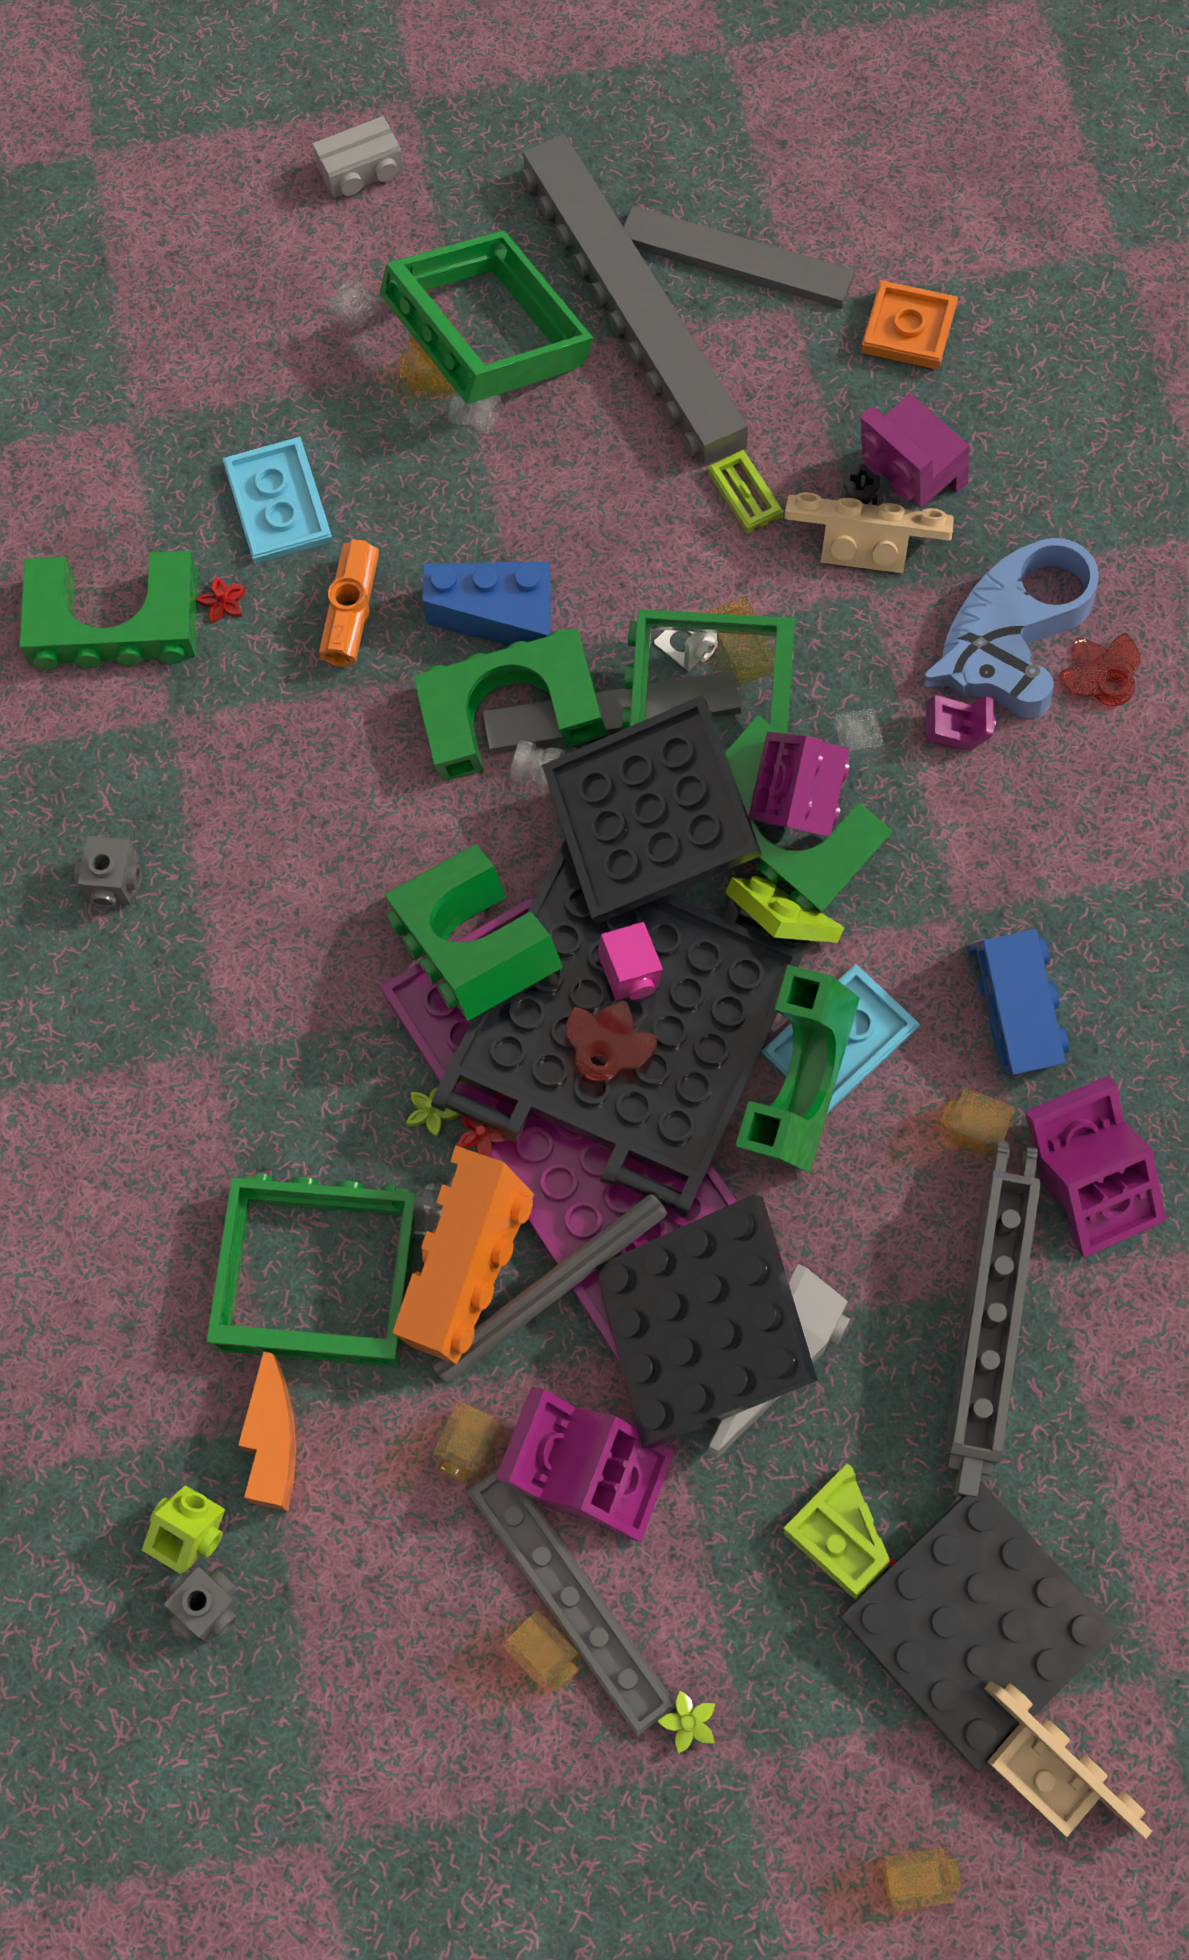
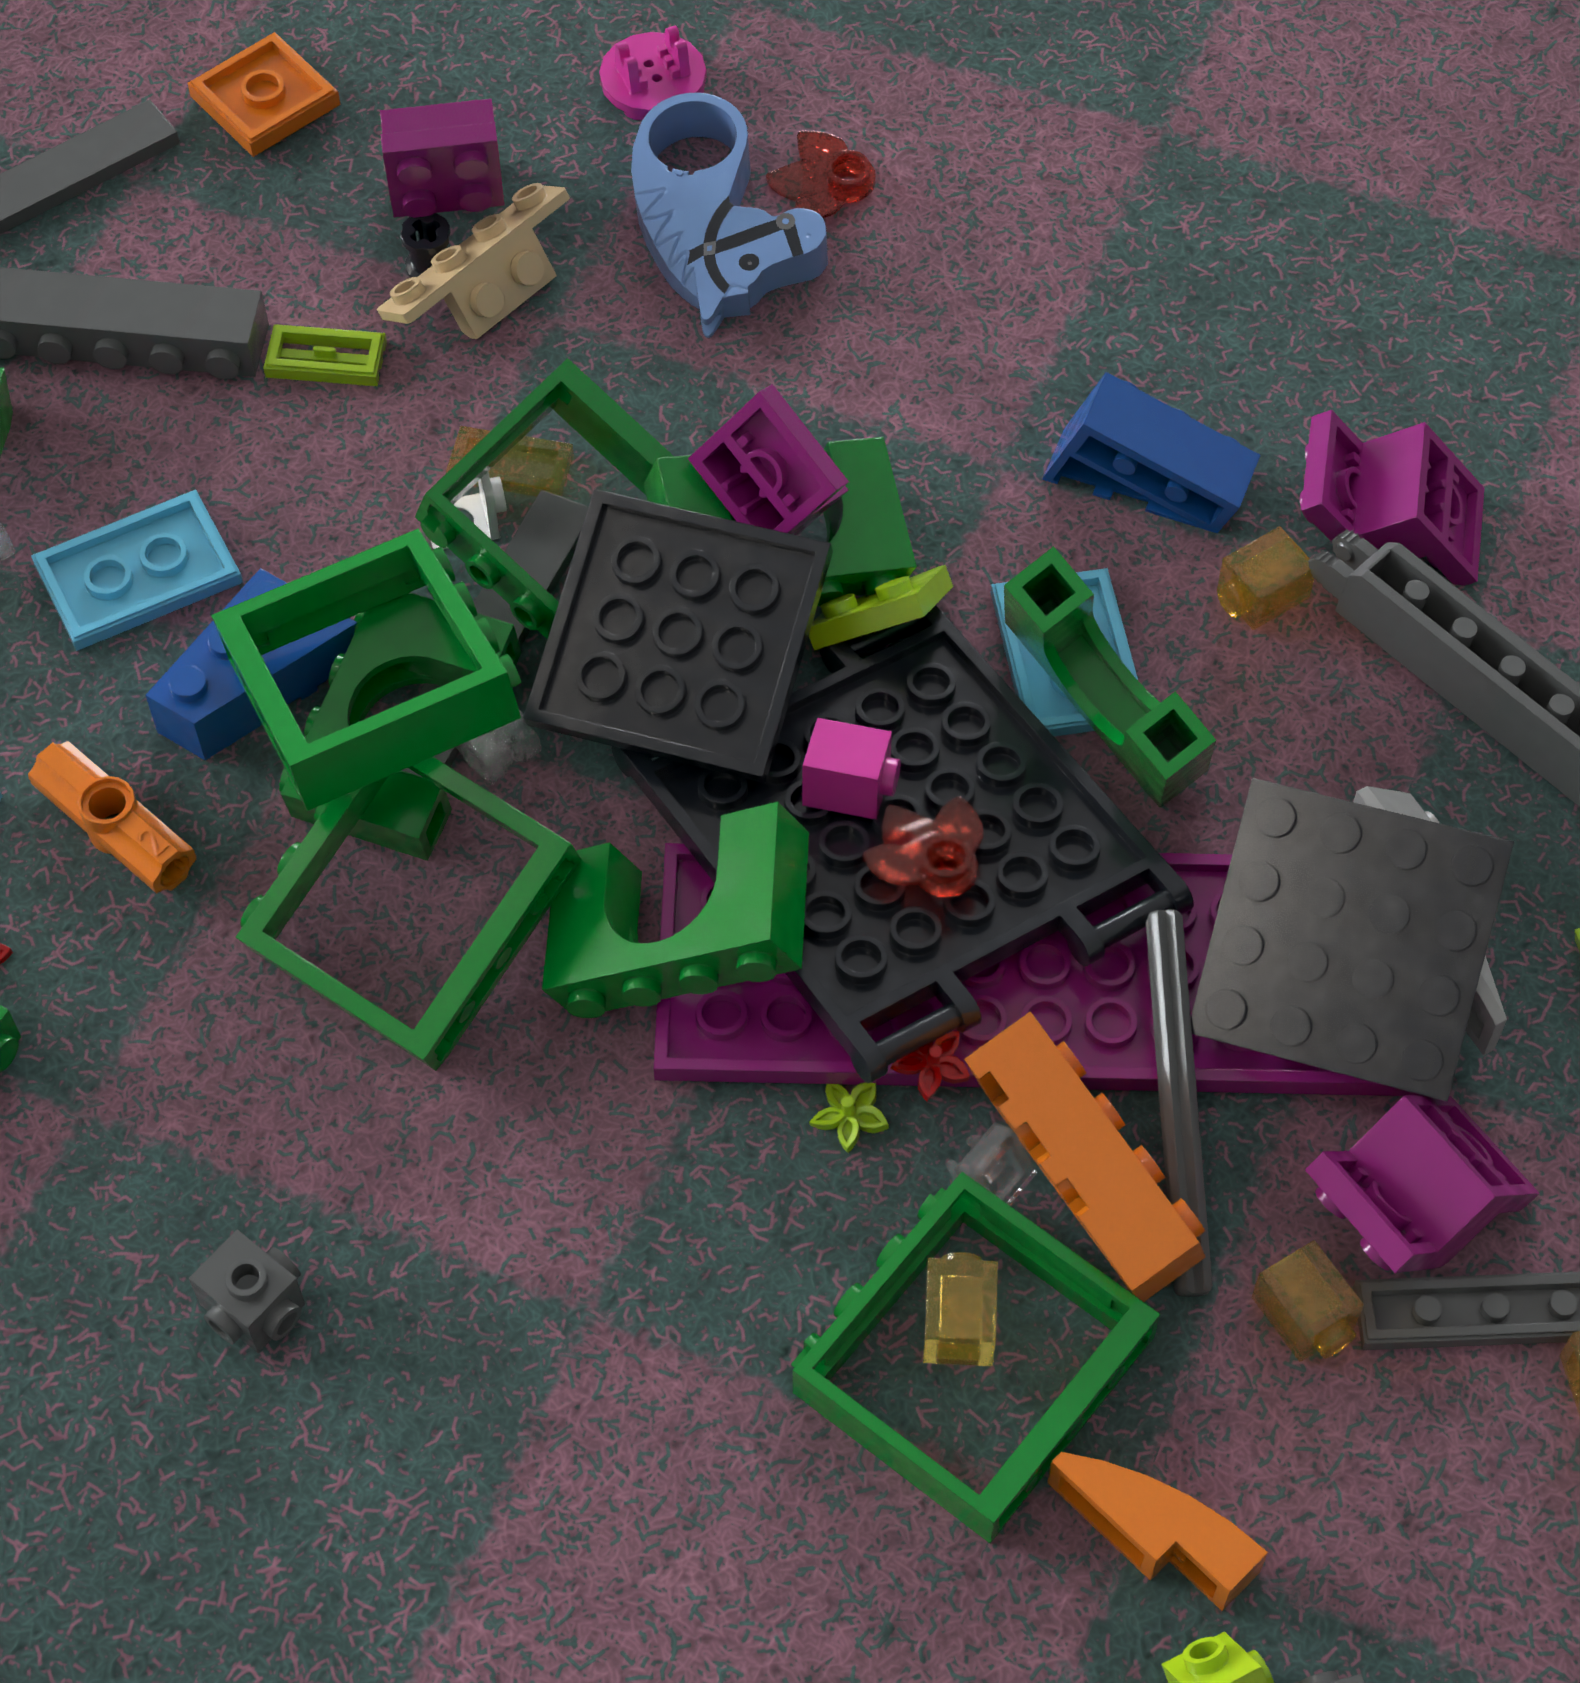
camera: 60 degrees left, 10 degrees down
(316, 1243) = (960, 1310): none -> clear yellow brick
(401, 850) = (485, 959): none -> green window
(477, 582) = (399, 734): none -> green window
(523, 501) = (136, 569): none -> medium azure tile
(858, 731) = (706, 416): clear tile -> none
(959, 723) = (787, 325): magenta bracket -> none
(1121, 531) = (649, 70): none -> dark pink plate

